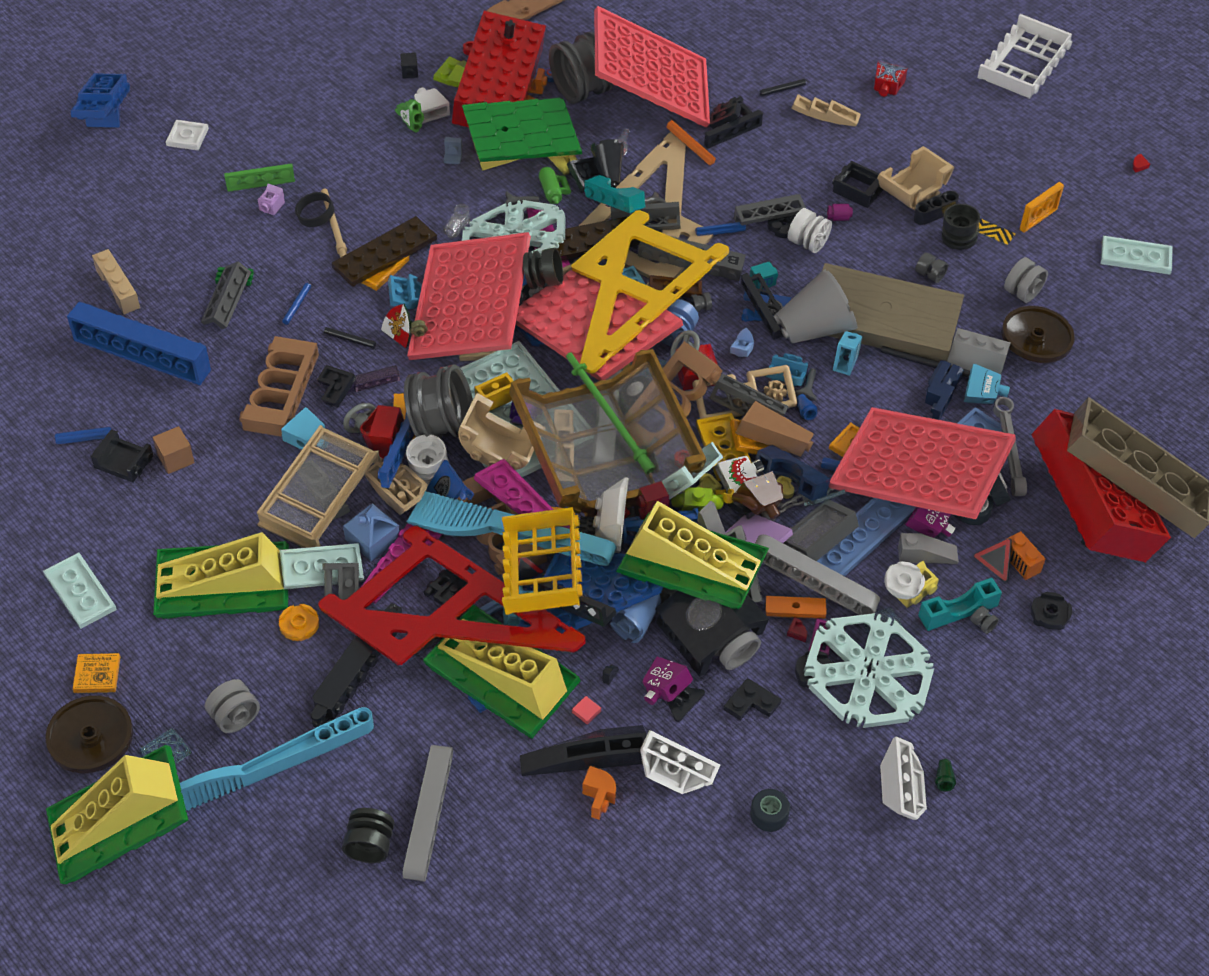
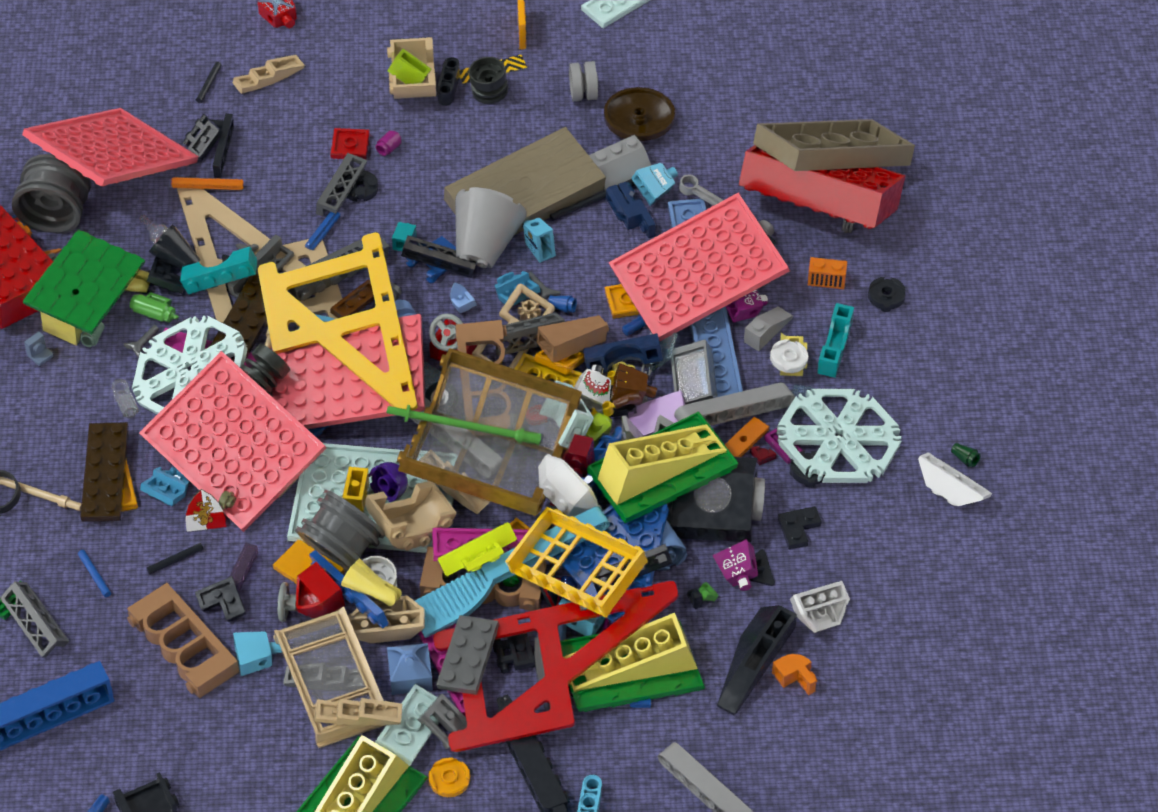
camera: 50 degrees left, 0 degrees up
(173, 450) = (180, 759): medium nougat head -> none
(294, 522) = (358, 712): none -> tan slope
(407, 448) = (364, 580): none -> light yellow piece
(409, 556) = (467, 655): none -> dark grey plate
(448, 483) = (419, 581): blue flag -> none
(496, 170) = (91, 340): none -> sand green cone
(504, 497) = (478, 551): none -> neon yellow bracket
(586, 710) = (713, 635): coral tile -> none
(622, 678) = (708, 592): none -> bright green tile
(770, 810) = (904, 578): black wheel -> none
(809, 230) = (394, 173): white wheel -> none
(817, 194) = (350, 141): none -> red tile
(852, 193) = (369, 99): black window -> none
(912, 172) = (409, 68): none -> lime piece
(930, 266) = (501, 130): dark grey wheel -> none
(984, 619) = (860, 336): dark grey wheel -> none
(997, 558) = (814, 290): piece -> none

